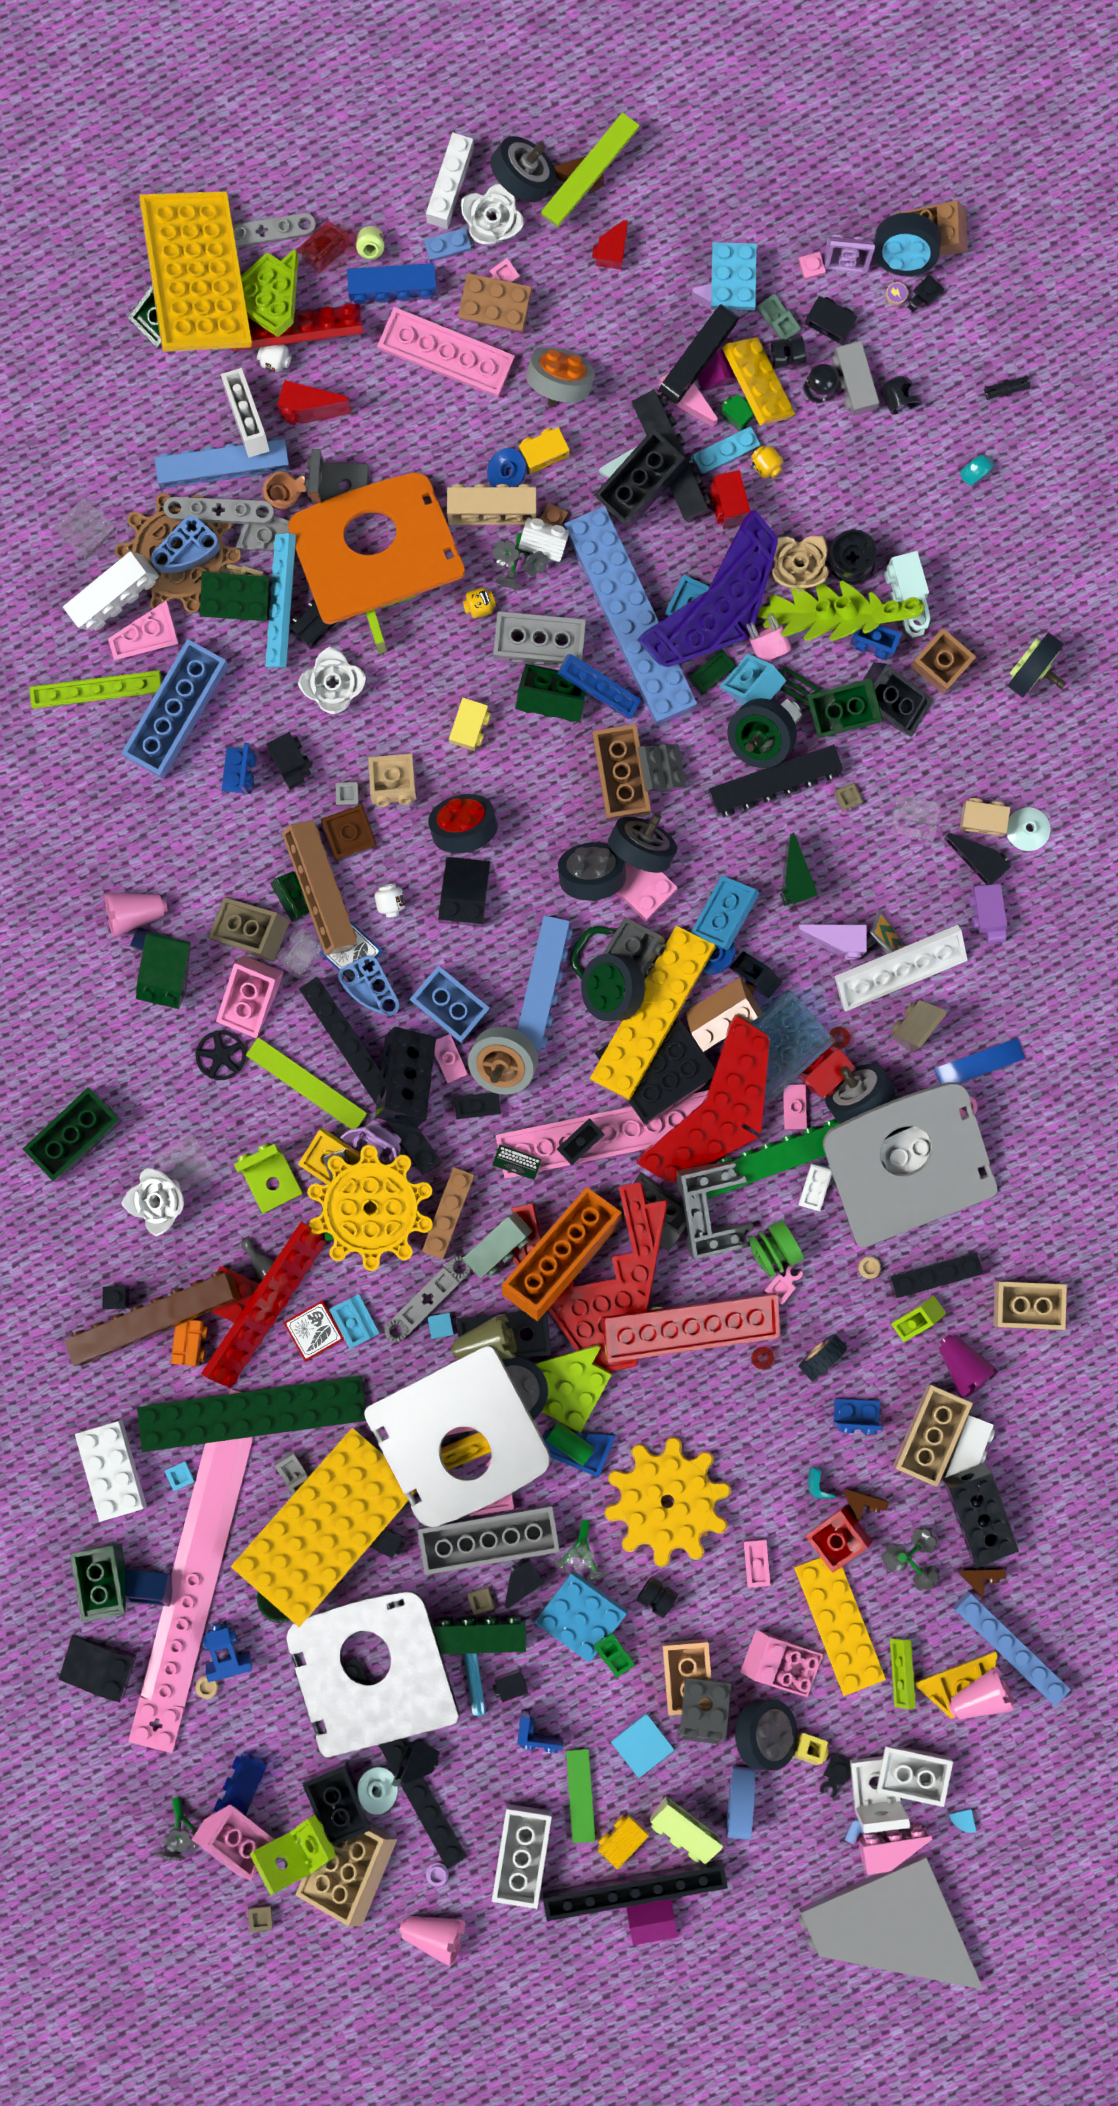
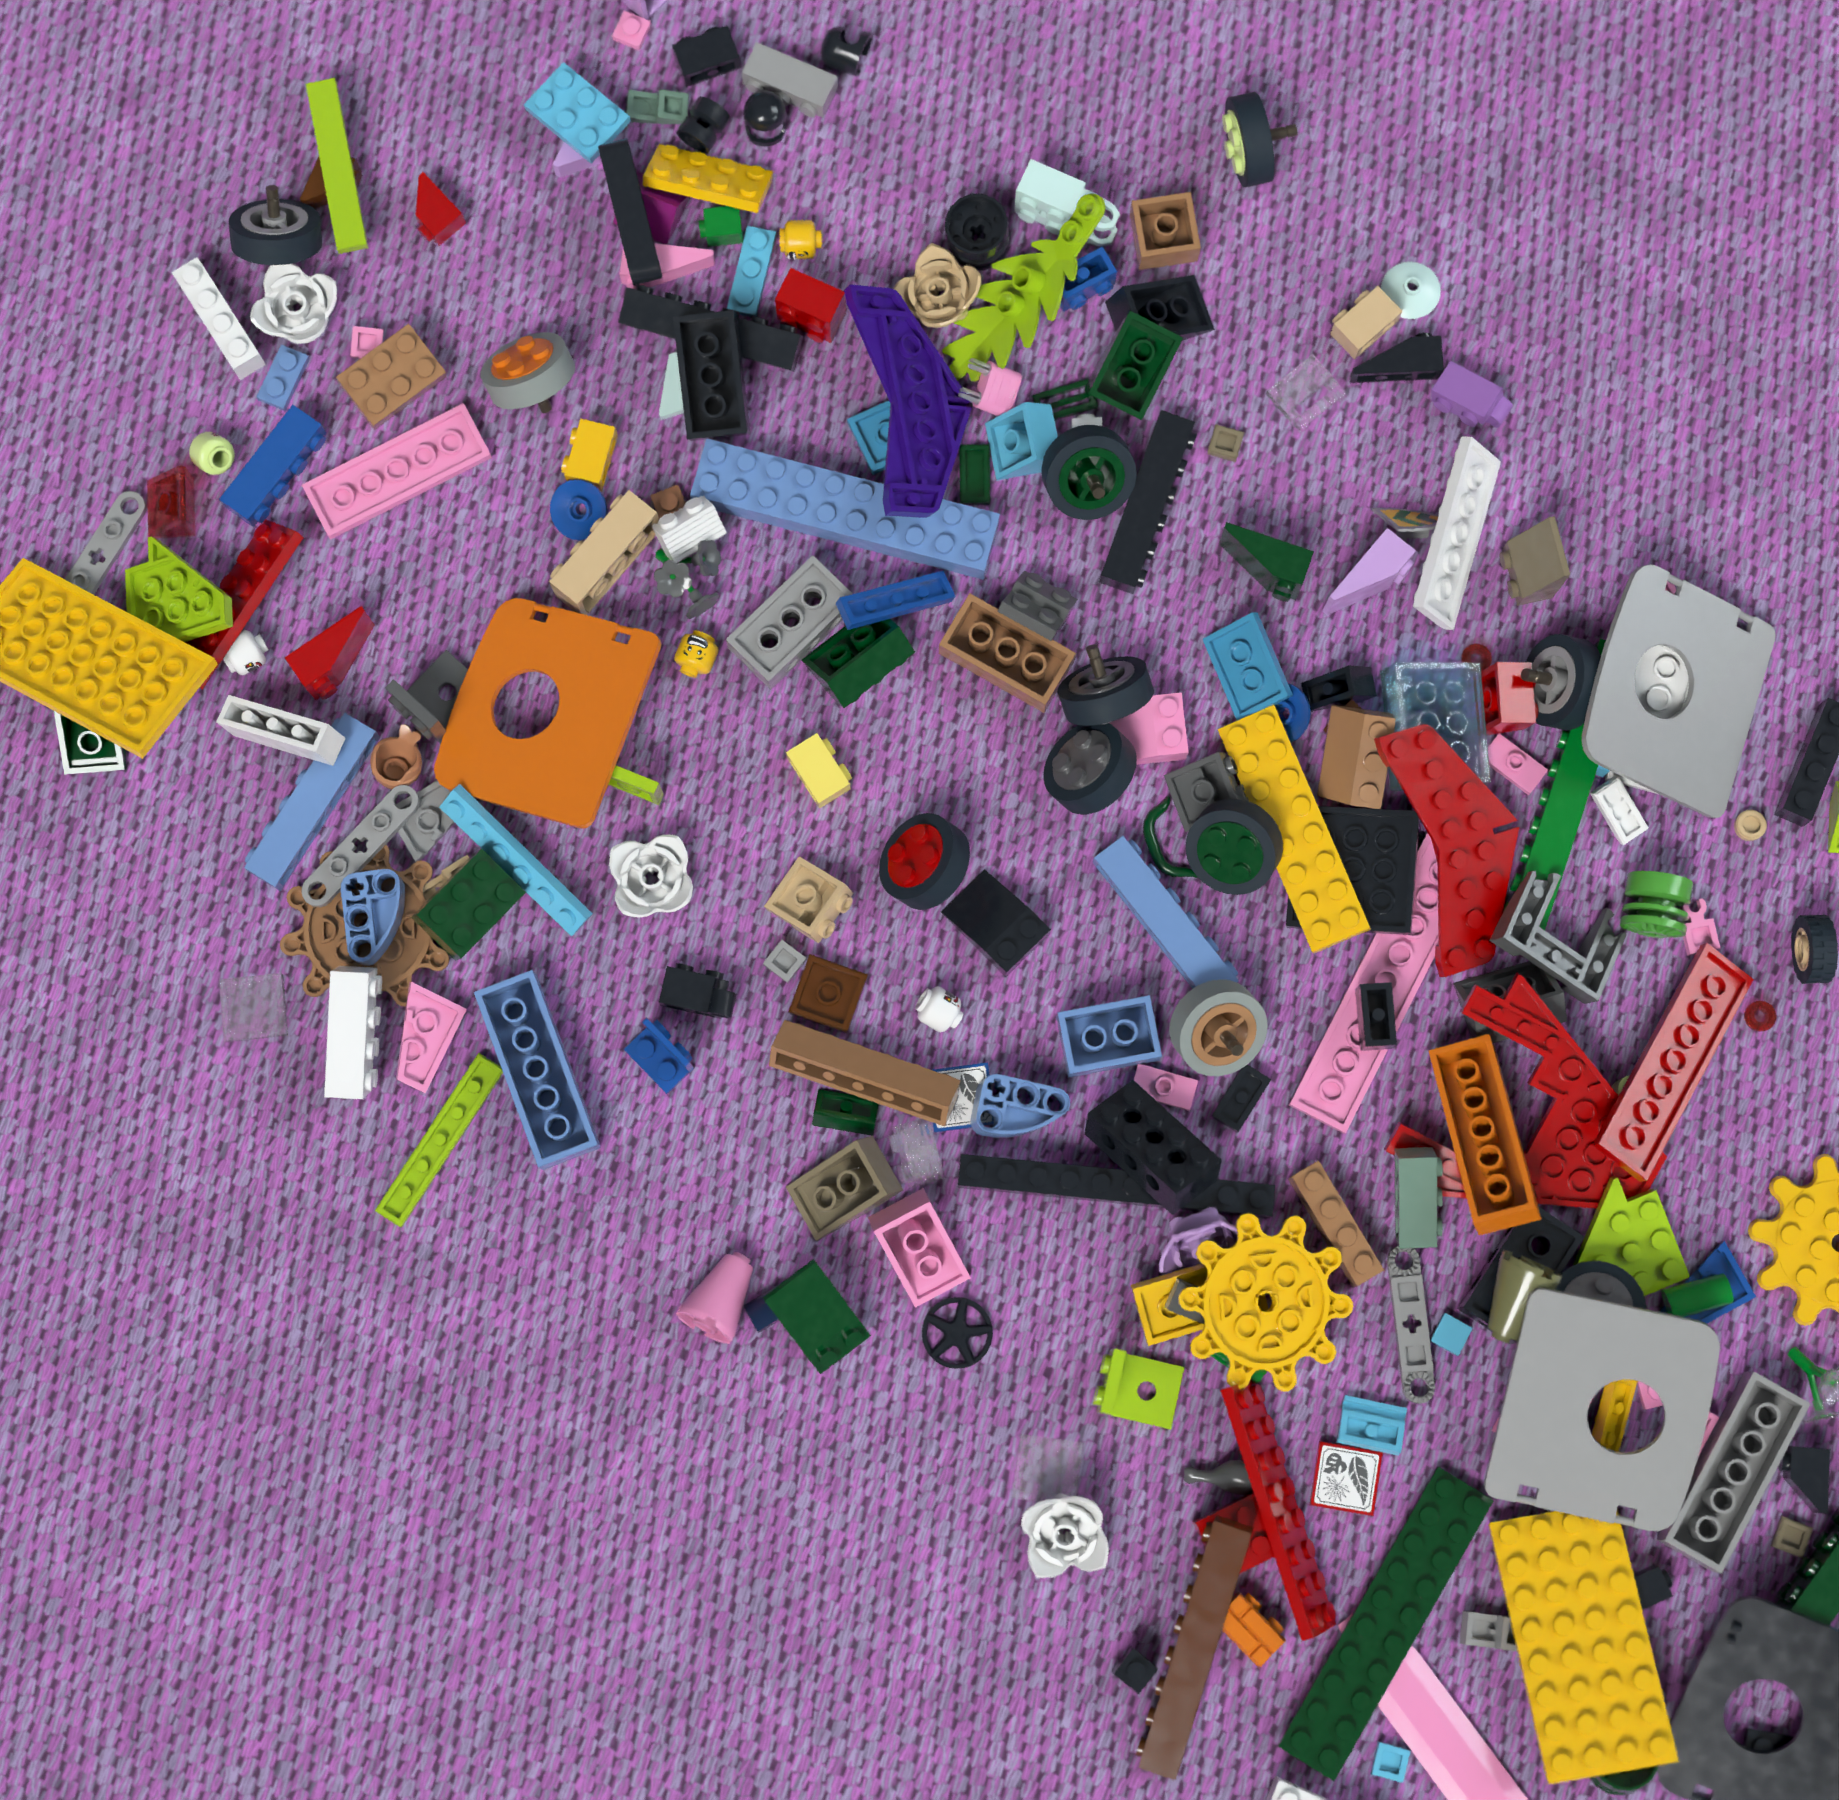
camera: 50 degrees left, 5 degrees down
(72, 1134) = (914, 1569): dark green brick -> none
(306, 1084) = (1066, 1264): lime tile -> none
(309, 626) = (569, 849): black brick -> none
(516, 1162) = (1340, 1104): slope -> none
(977, 469) = (989, 39): teal hair -> none
(980, 1062) = (1622, 537): blue slope -> none

